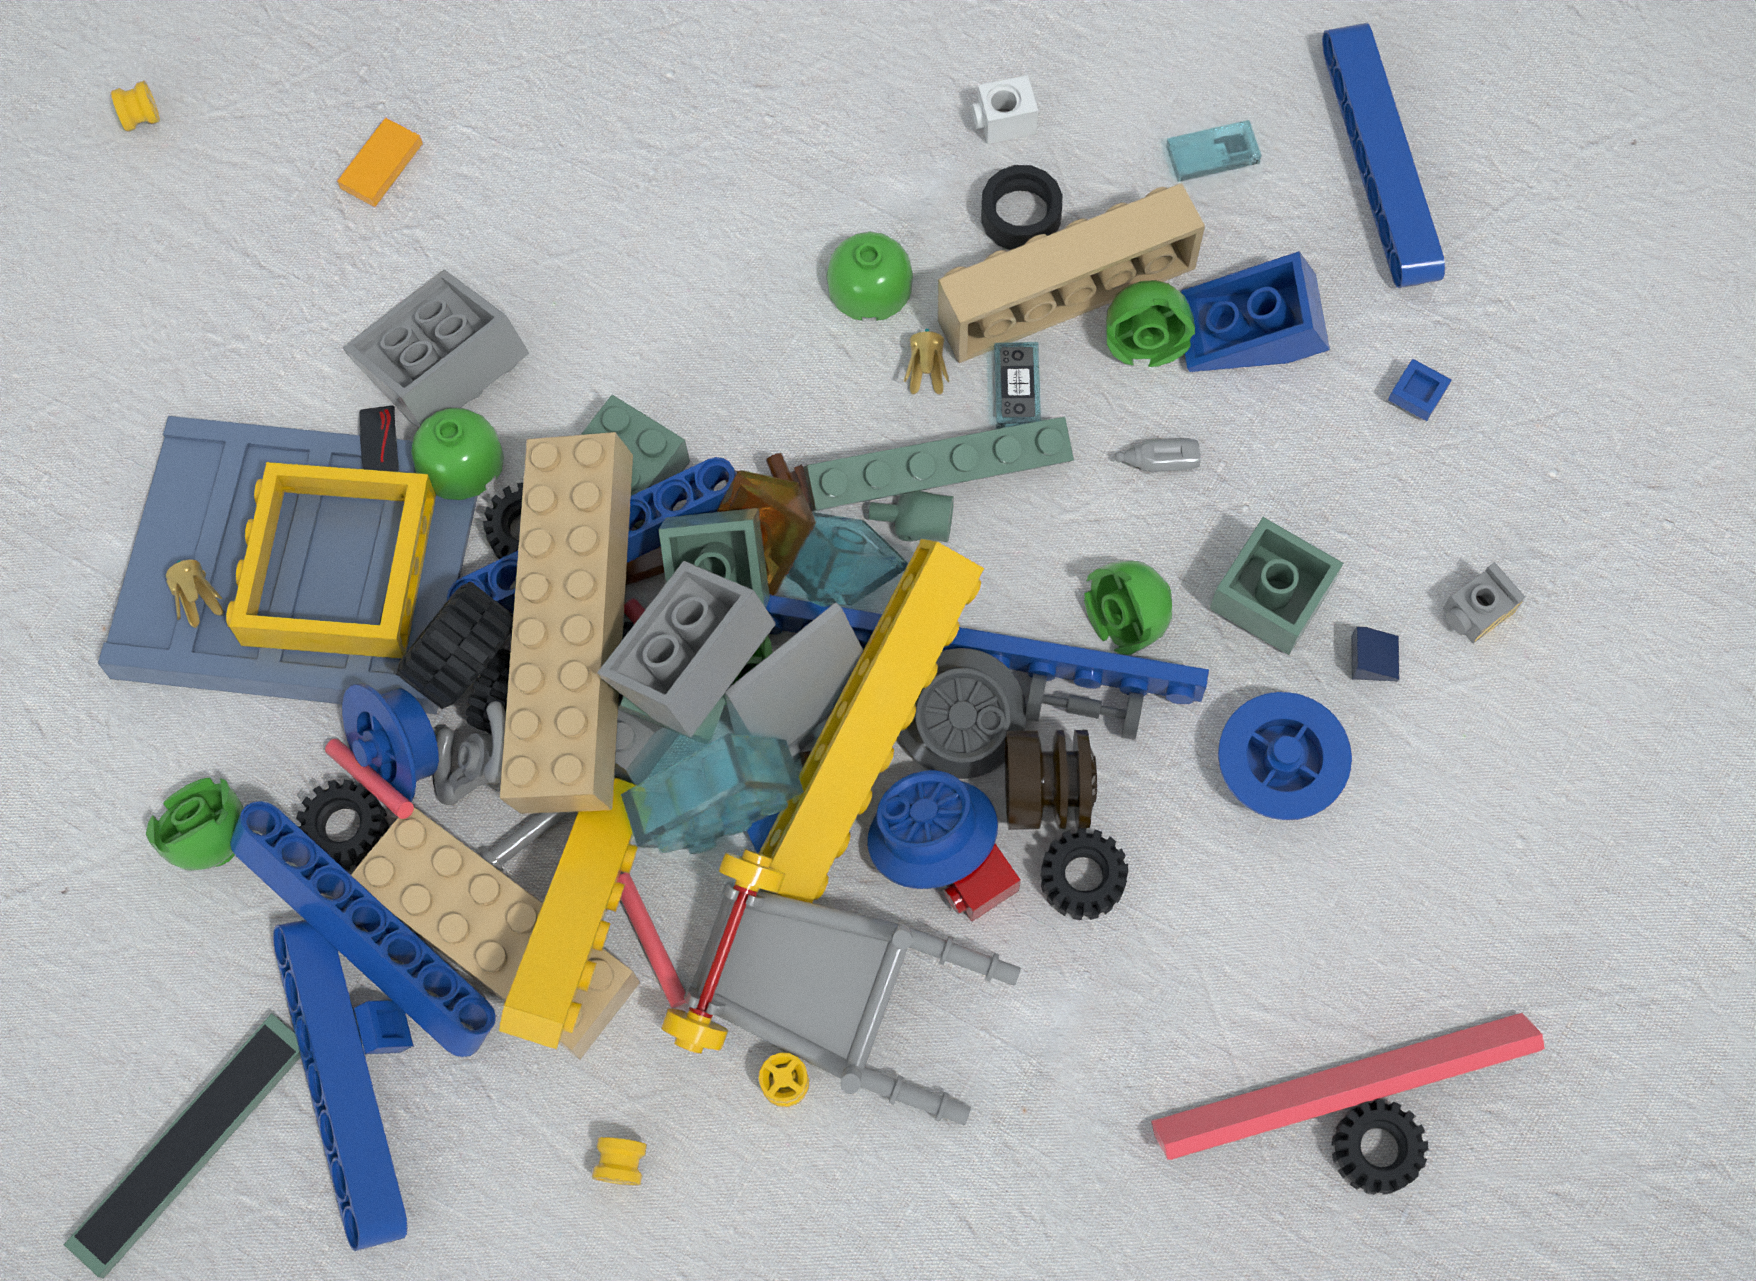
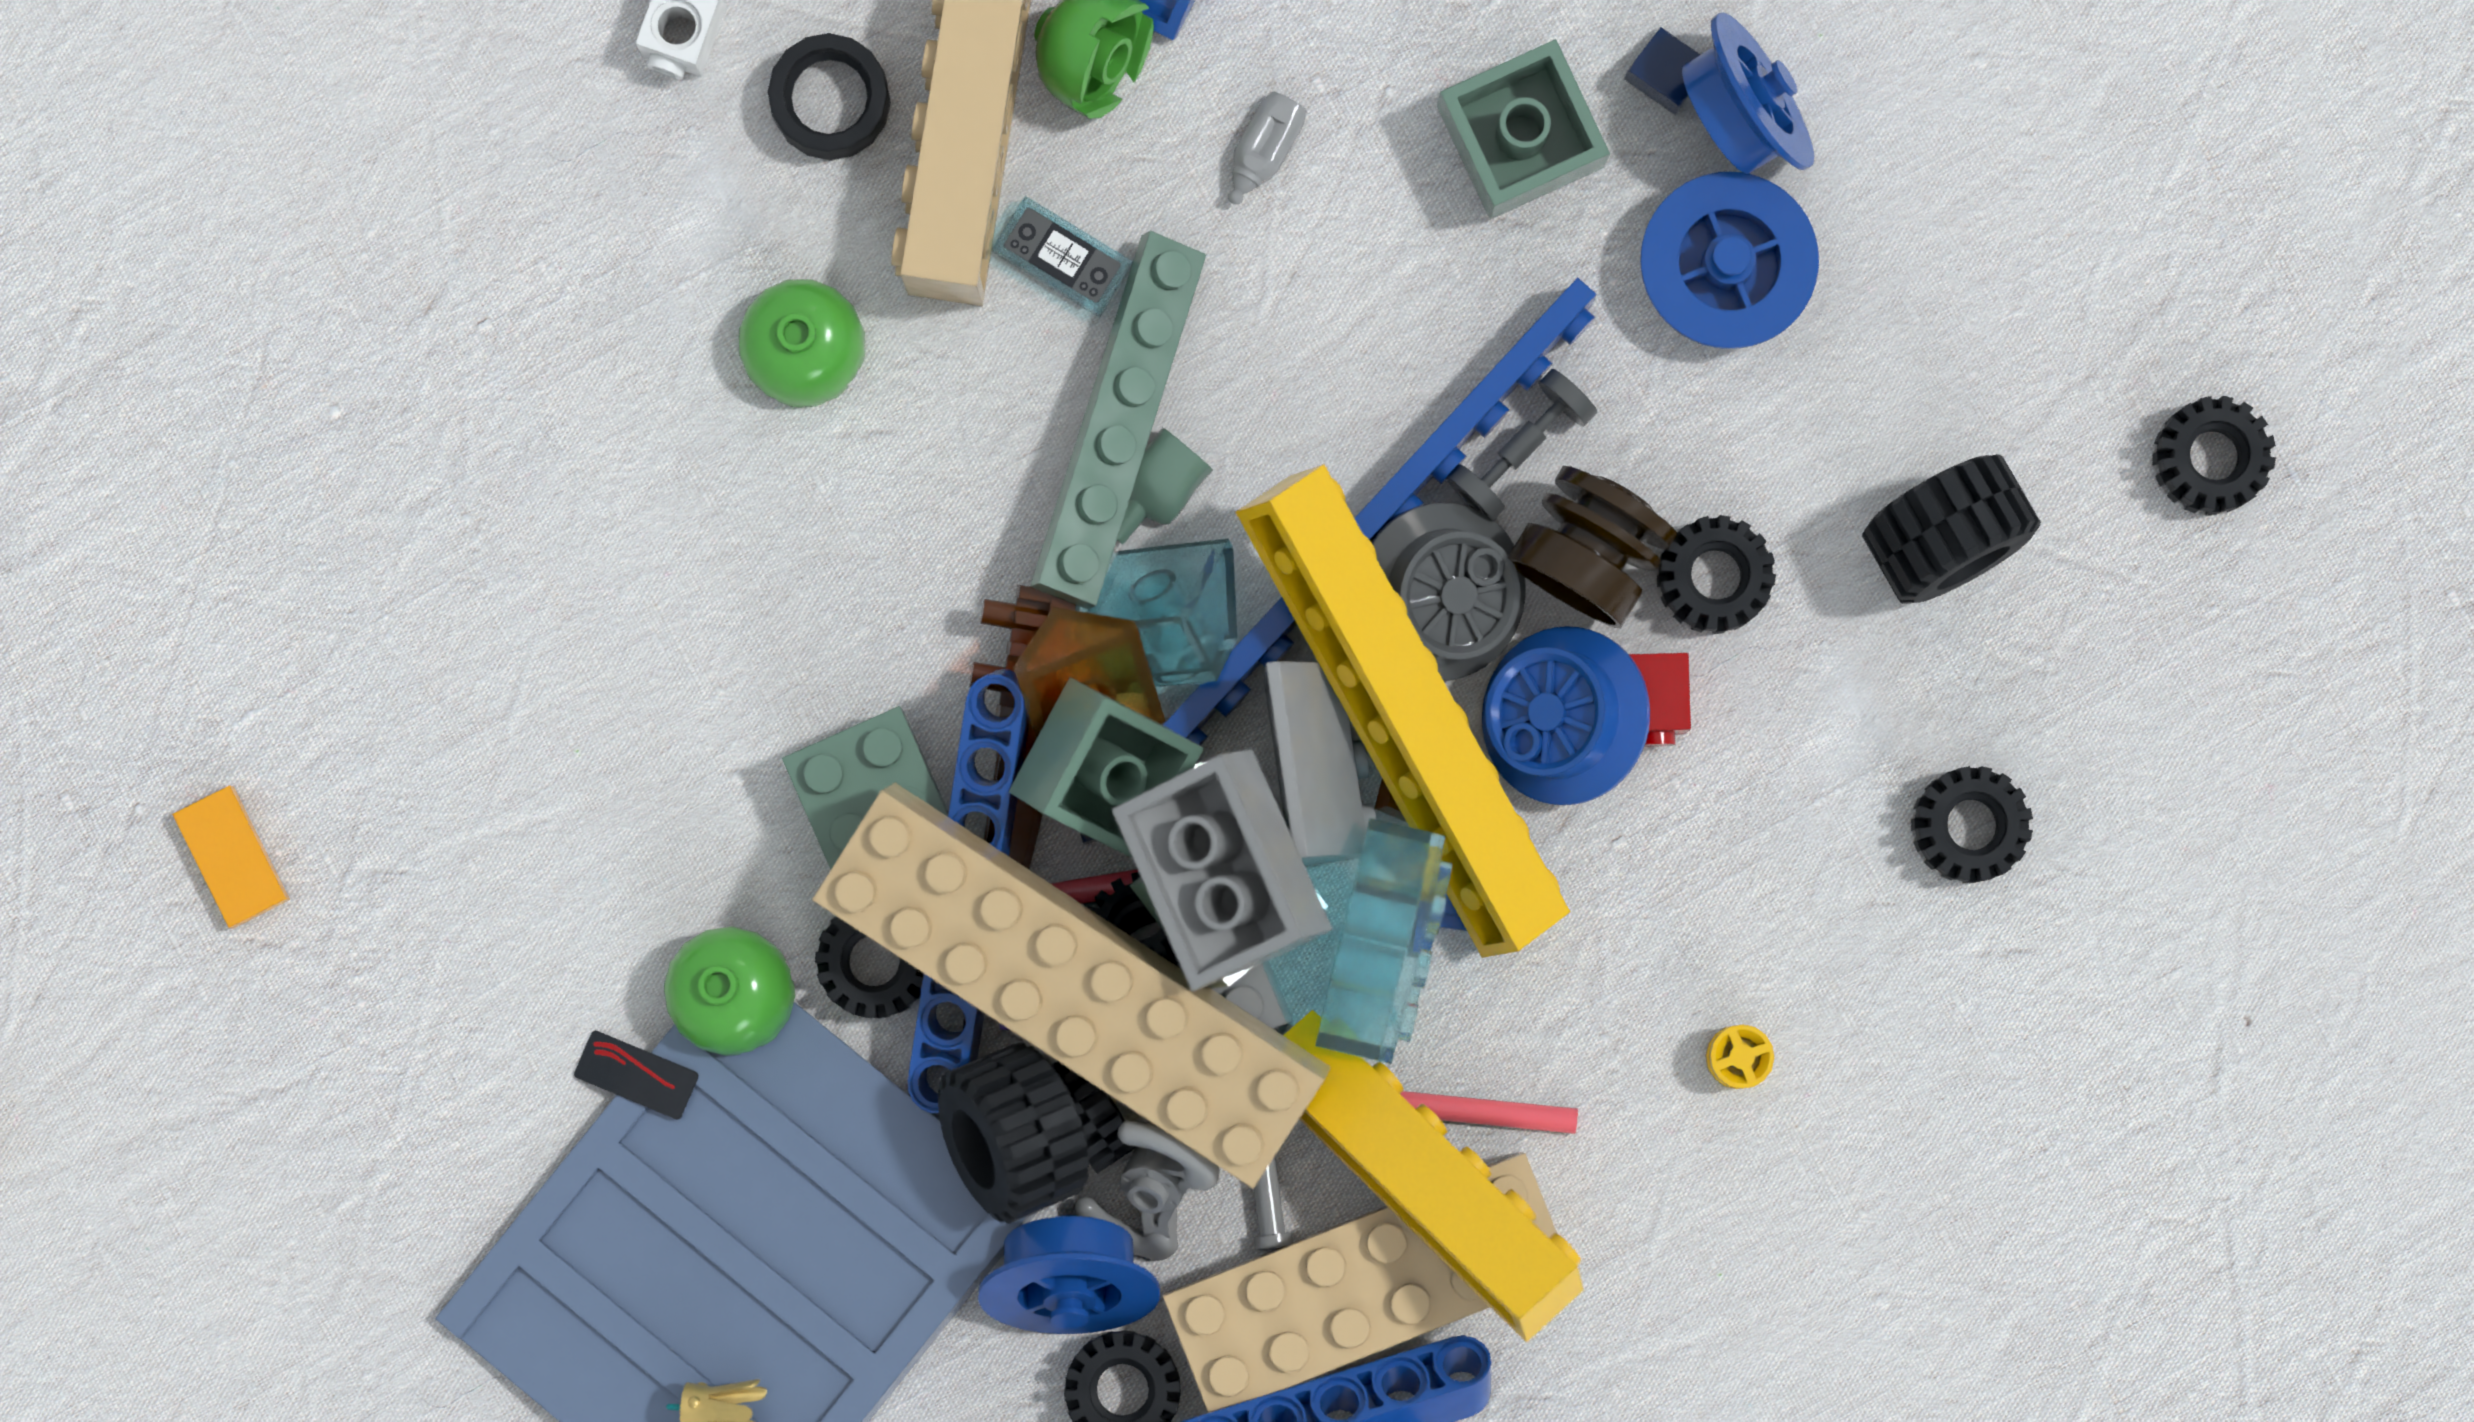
camera: 65 degrees left, 15 degrees up
(369, 779) = (1100, 1326): coral bar -> none
(383, 640) = (742, 1324): yellow window -> none
(437, 348) = (557, 936): light grey slope -> none
(619, 1161) = (1718, 1293): yellow wheel -> none
(810, 981) = (1655, 964): light grey piece -> none
(926, 359) = (955, 339): pearl gold piece -> none
(1053, 1116) = (2009, 813): none -> black tyre
(1128, 604) = (1436, 312): bright green cylinder -> none
(1211, 994) = (1951, 528): none -> black tyre
(1347, 1085) = (2129, 445): coral tile -> none
(1390, 701) = (1747, 100): none -> blue wheel

